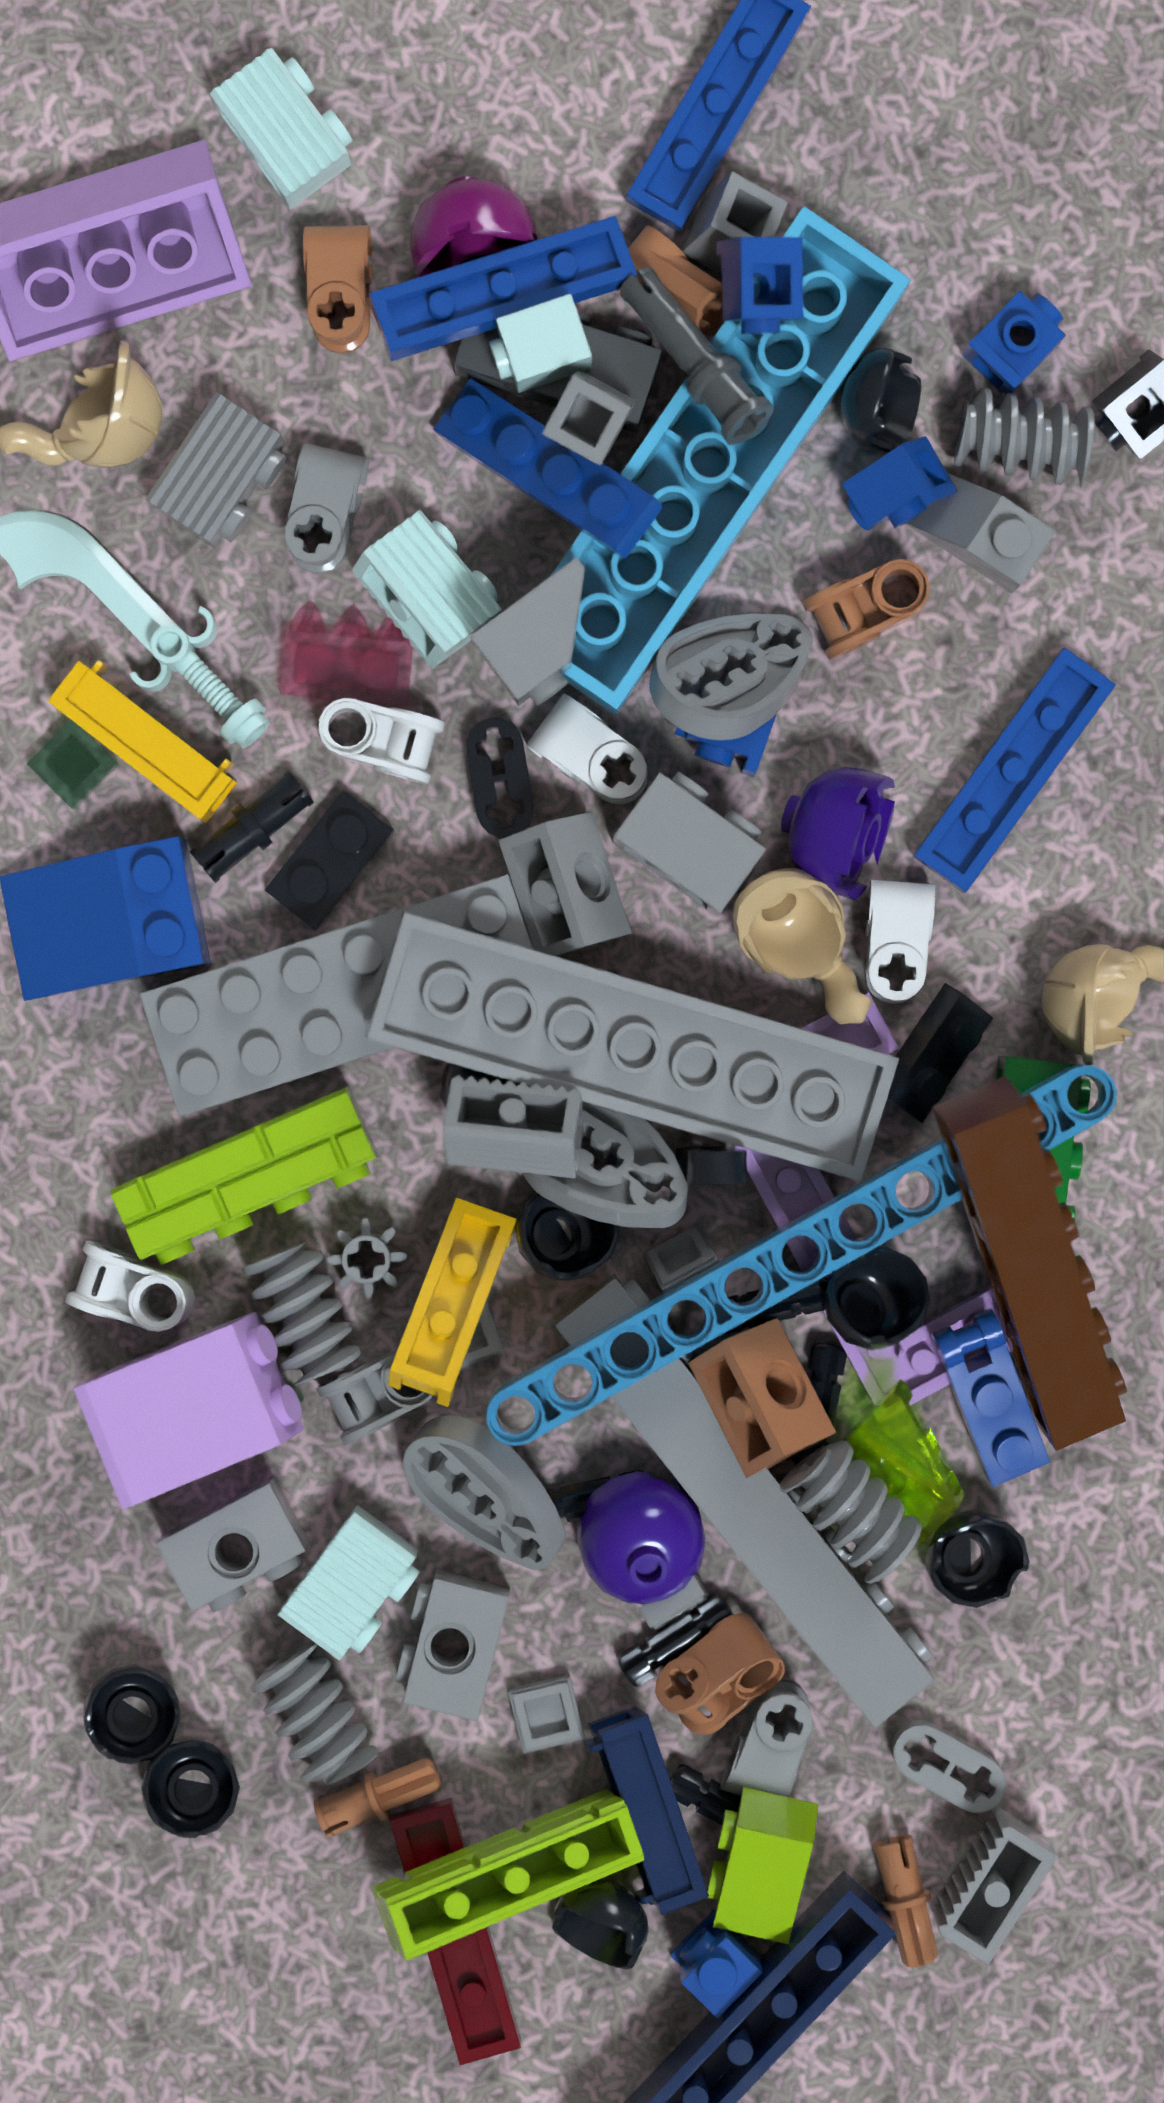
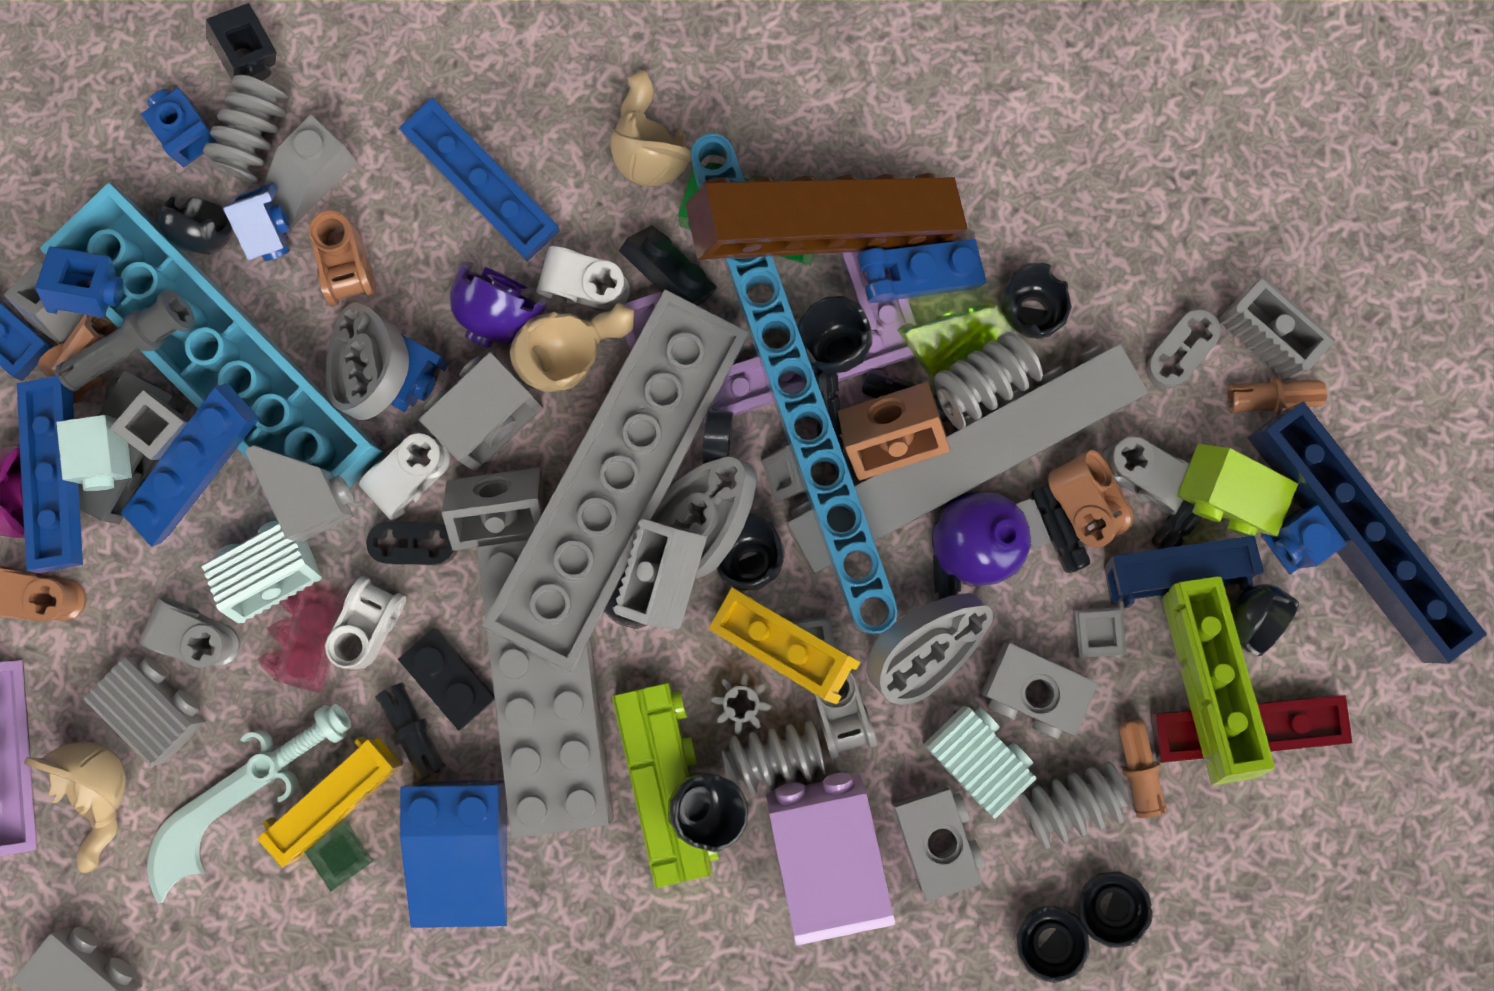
camera: 75 degrees left, 5 degrees down
(118, 1287) = (730, 892): white piece -> none
(220, 1244) = (708, 811): none -> black hair

